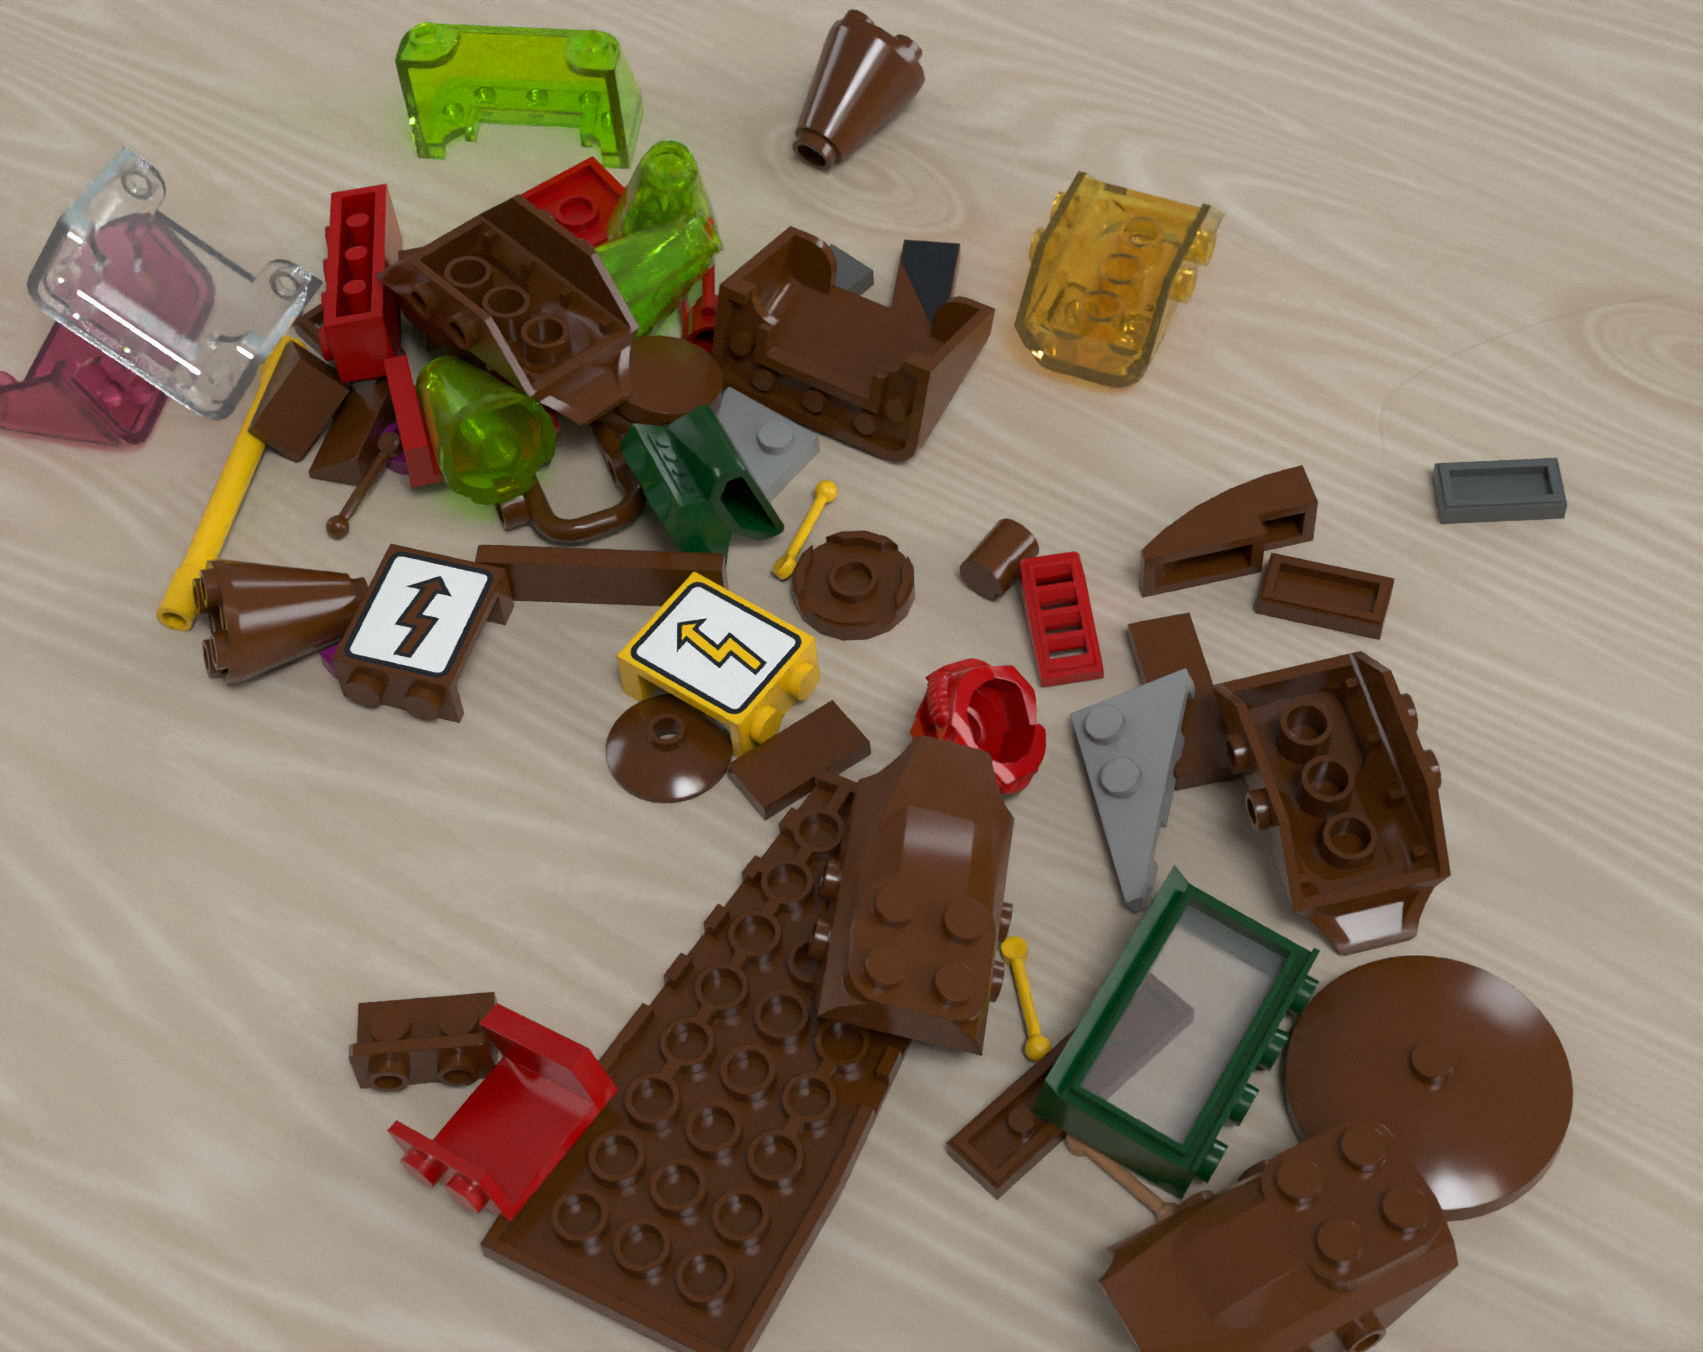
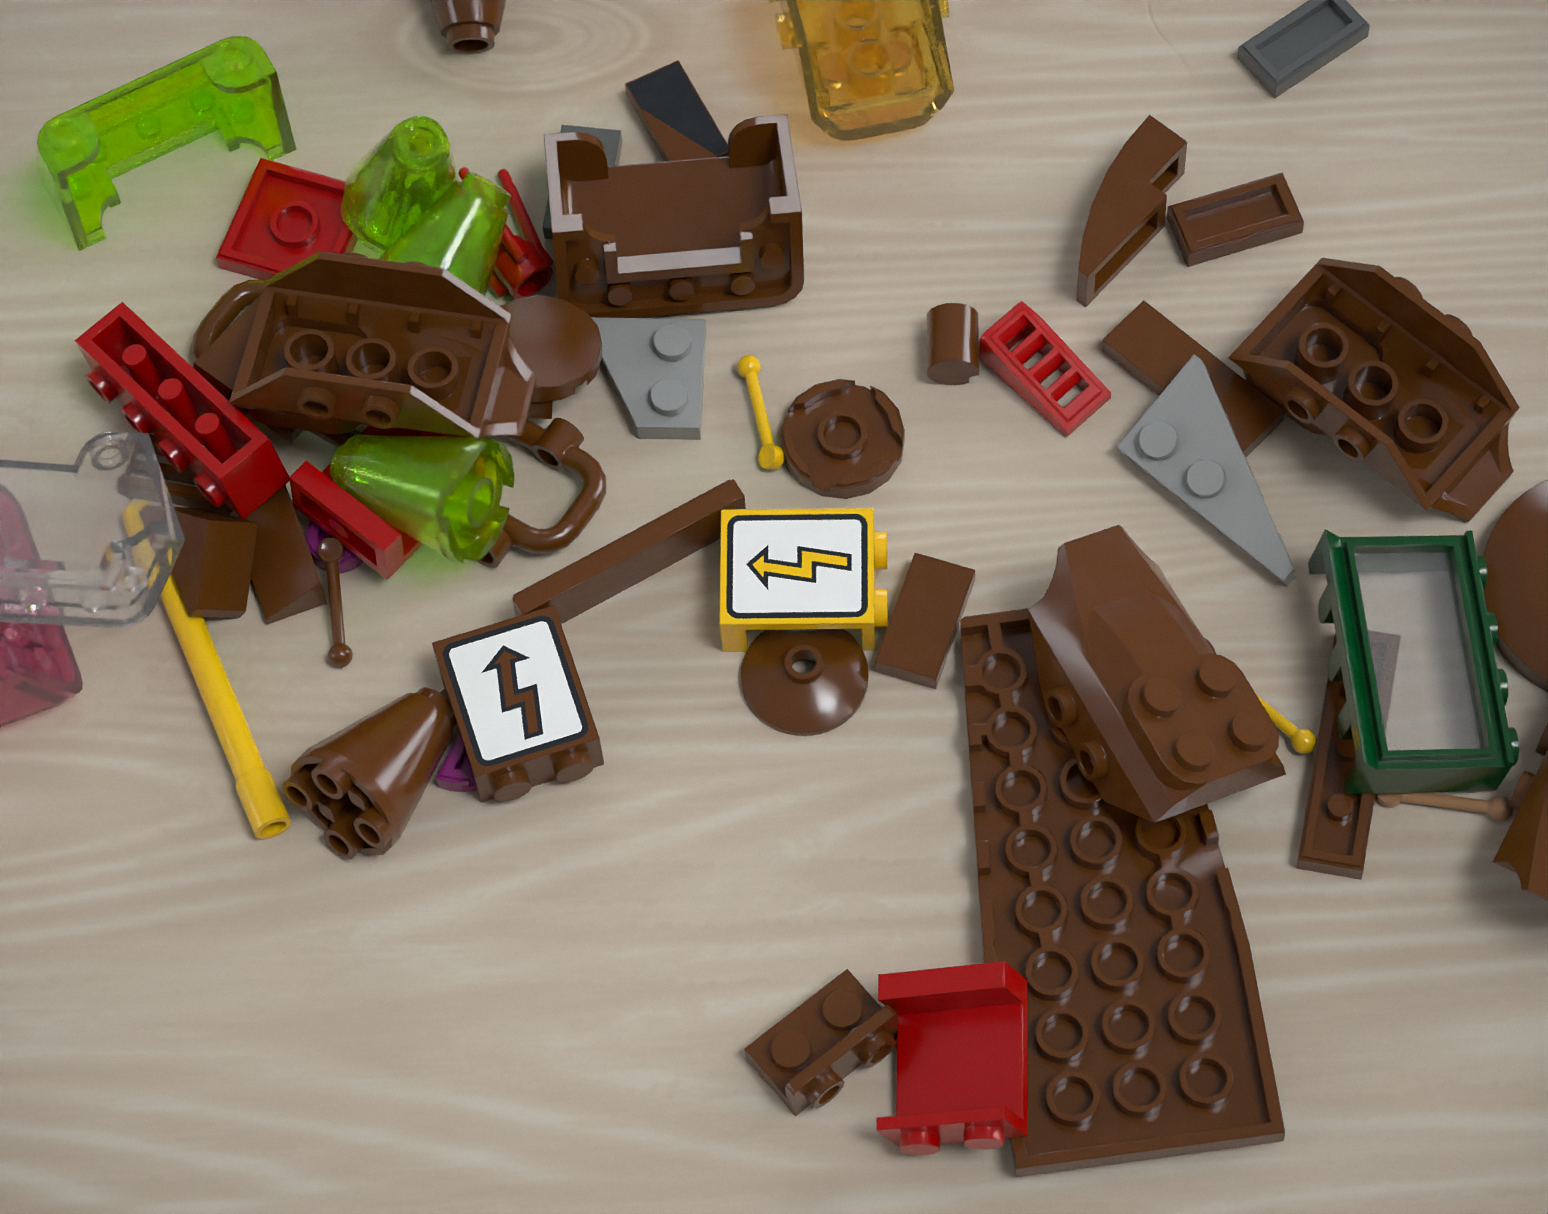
camera: 35 degrees left, 10 degrees up
(699, 483) = (662, 426): dark green piece -> none
(989, 712) = (1064, 496): red helmet -> none

